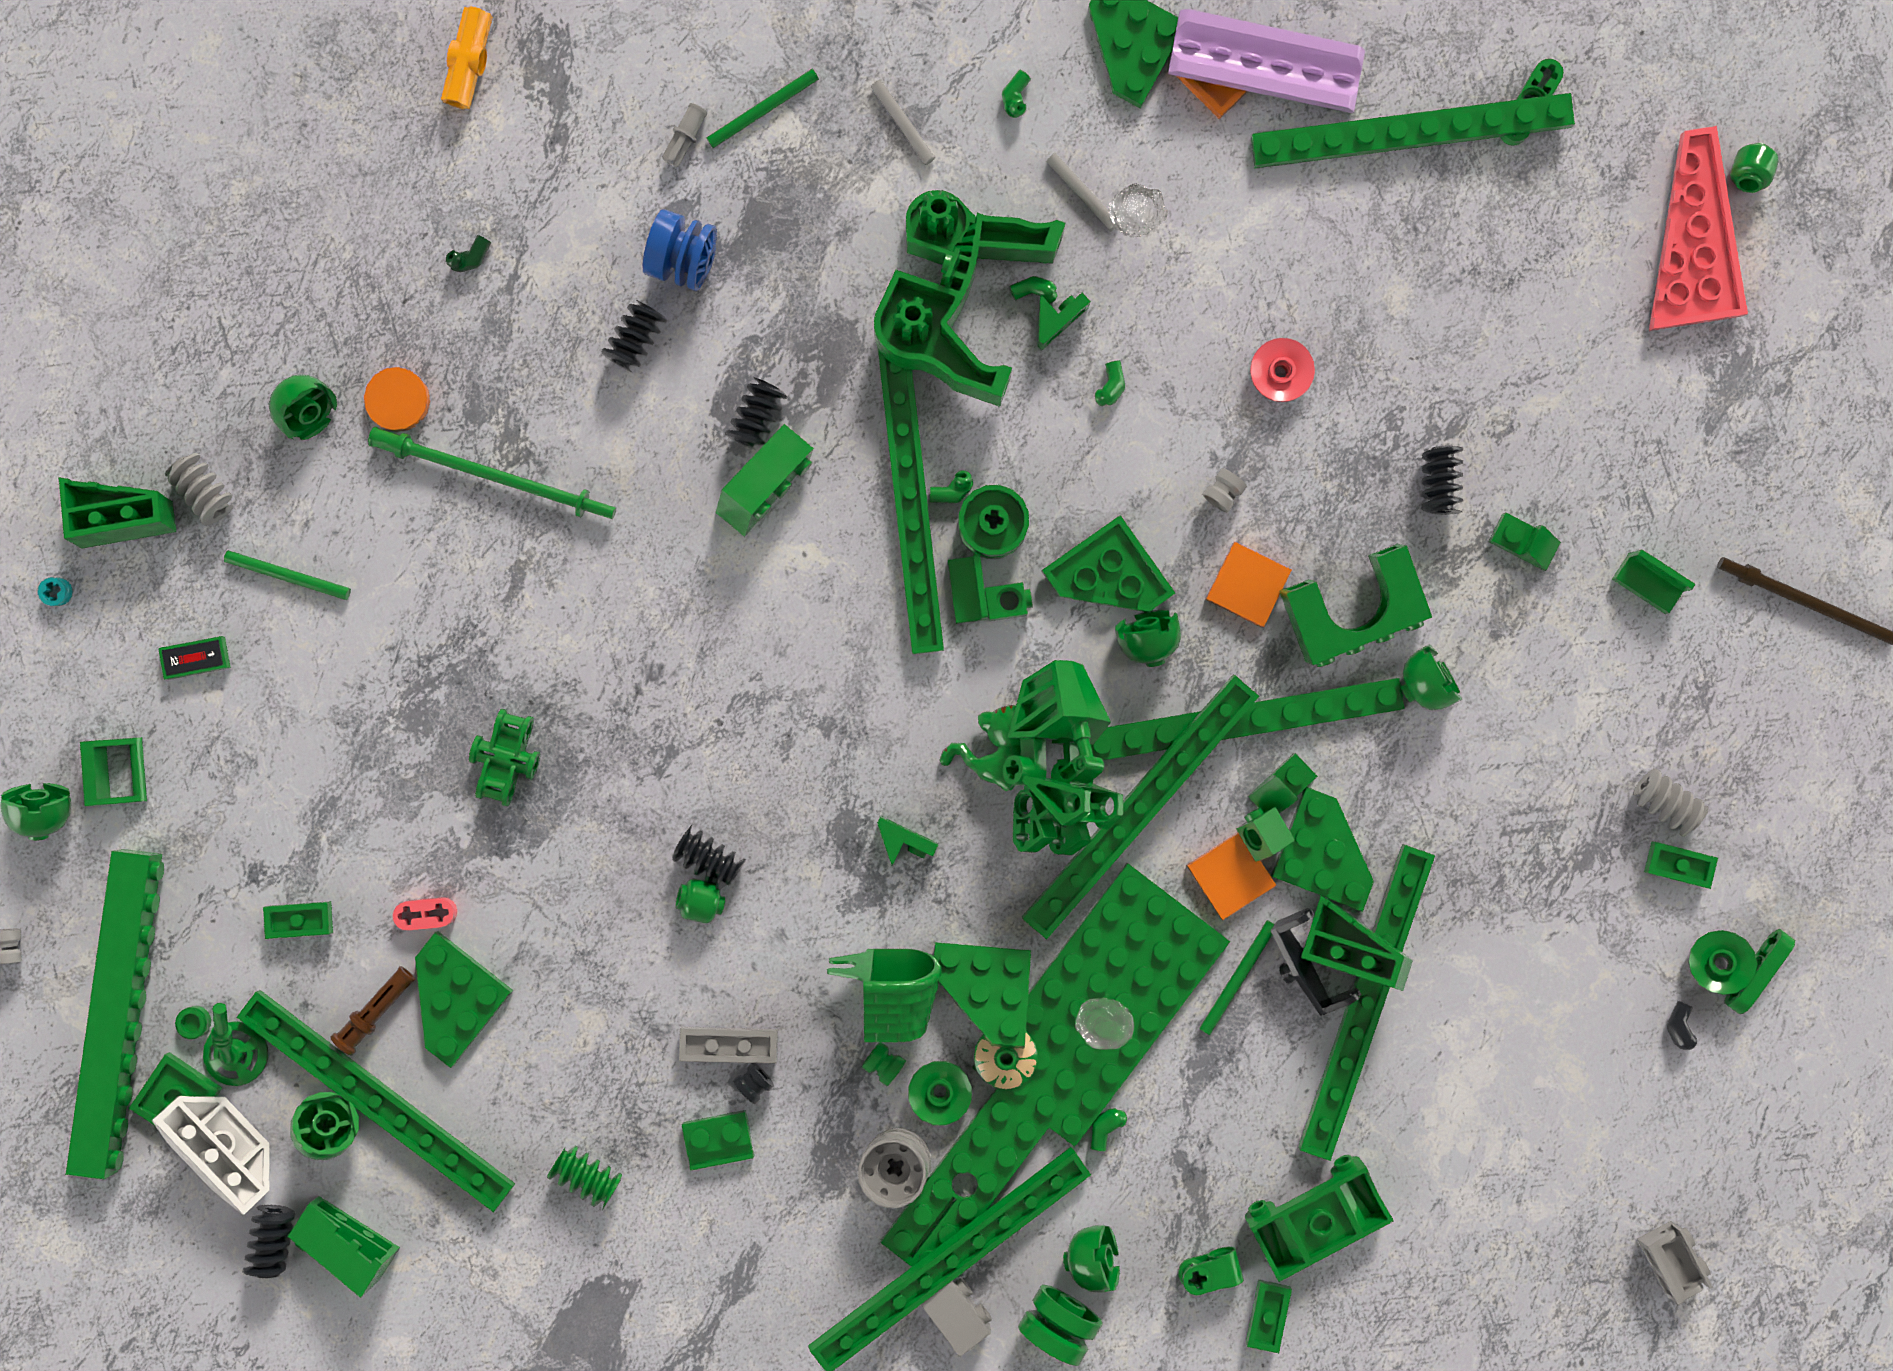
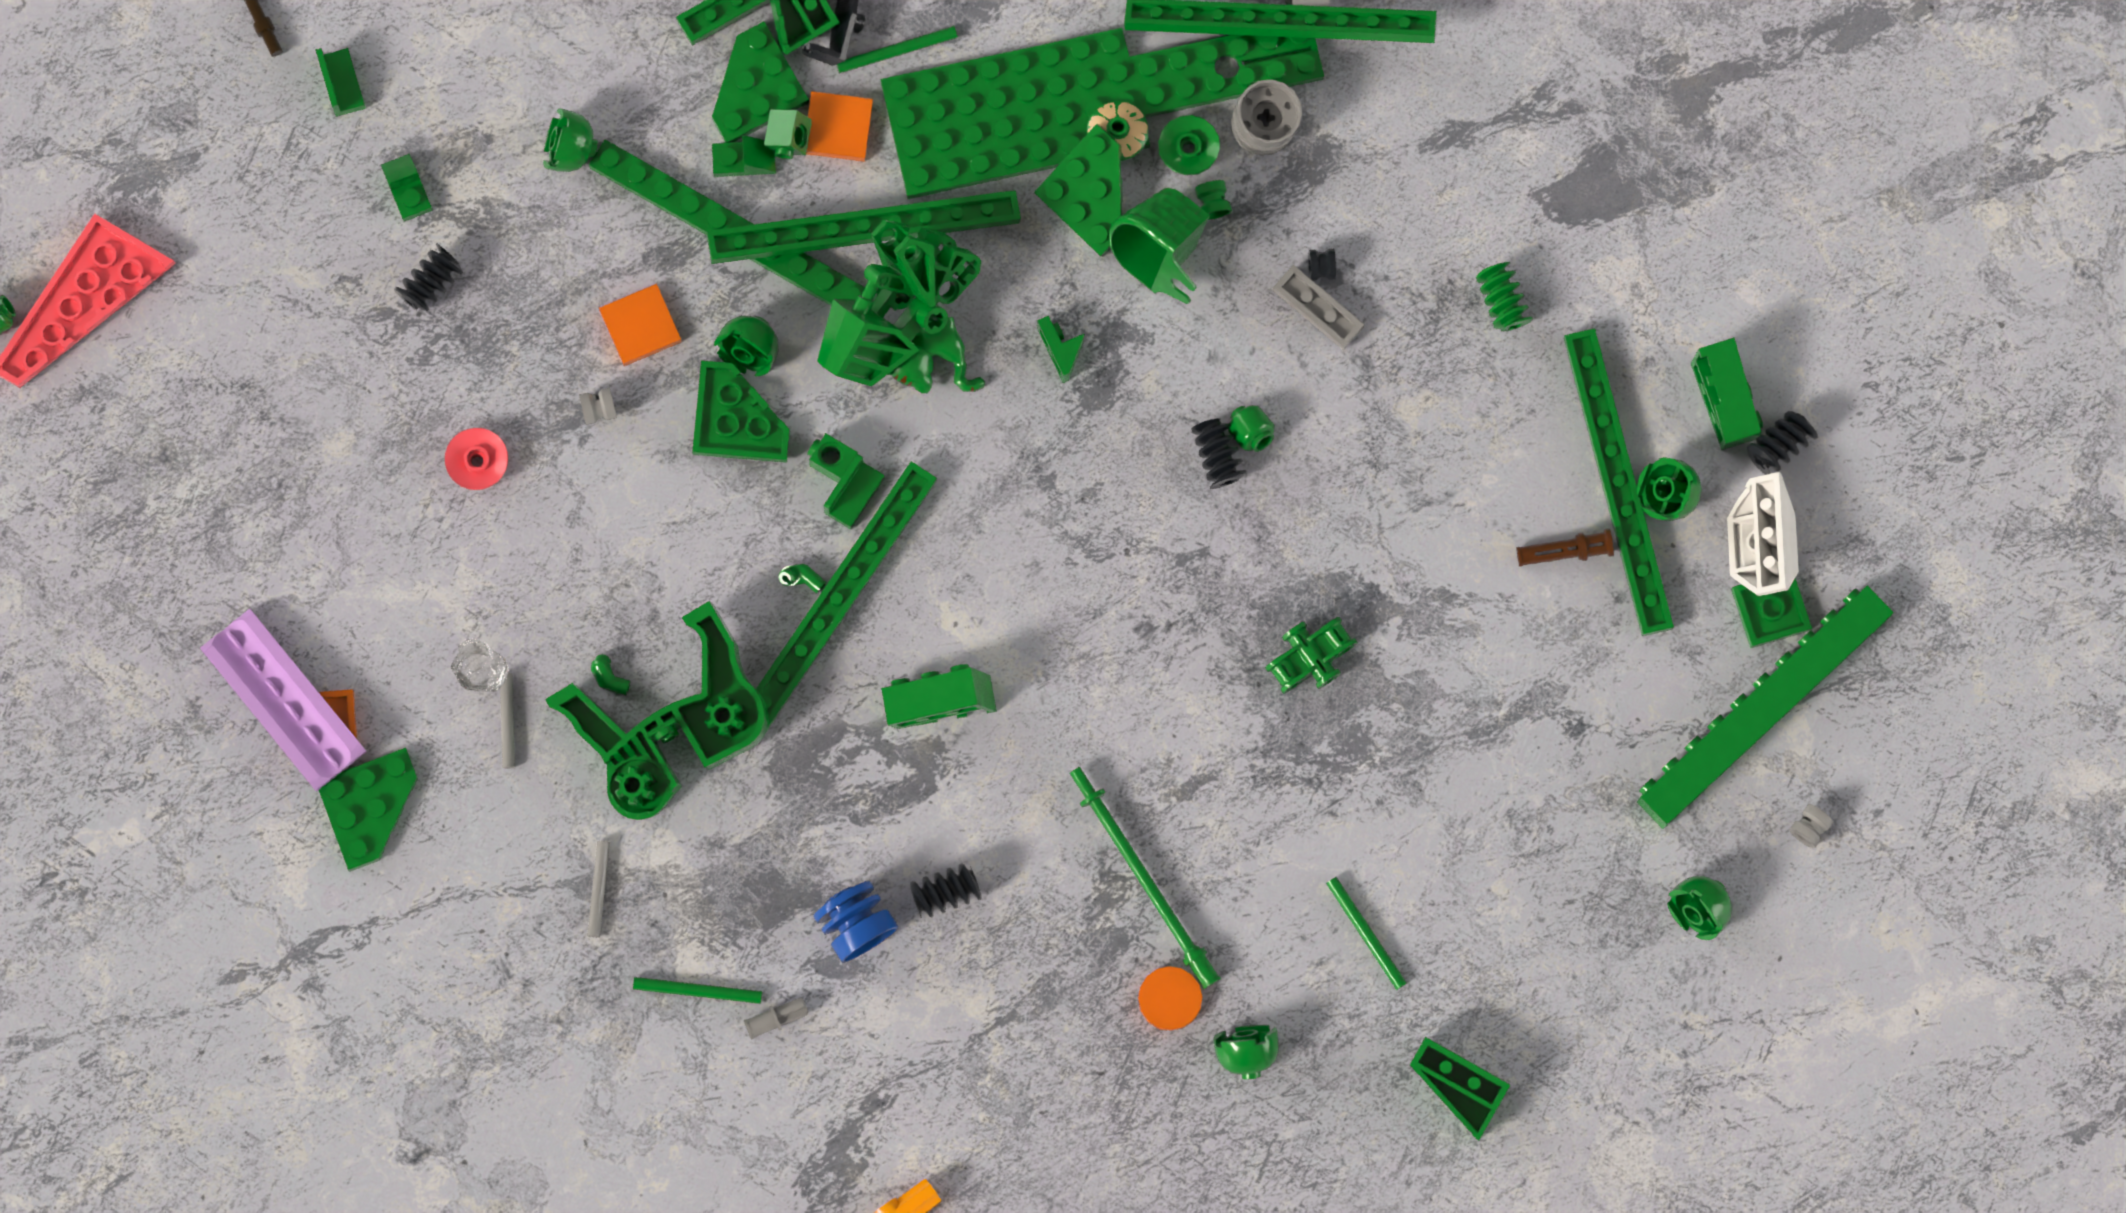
camera: 145 degrees left, 10 degrees down
(63, 596) = (1552, 1061): teal bush -> none
(96, 771) = (1632, 904): green tile -> none
(193, 1022) = (1713, 654): green tile -> none
(194, 658) = (1490, 928): tile -> none
(198, 489) = (1377, 1051): light grey piece -> none
(233, 1050) = (1684, 607): green dish -> none
(298, 920) = (1569, 663): green plate -> none
(424, 906) = (1464, 596): coral beam -> none
(454, 997) = (1496, 510): green plate -> none
(469, 259) = (1023, 1061): dark green arm -> none
(718, 1140) = (1384, 246): green plate -> none
(756, 413) = (902, 753): black piece -> none
(997, 503) = (789, 505): green wheel -> none
(1012, 94) = (497, 838): green arm -> none
(1052, 323) = (620, 635): green slope -> none
(1104, 1023) = (1023, 93): clear hair -> none
(1105, 1124) = (1086, 25): green arm -> none
(1114, 387) = (612, 552): green arm -> none
(1400, 608) = (545, 212): green arch -> none
(1412, 130) = (219, 557): green plate -> none
(1528, 89) = (128, 489): green beam -> none

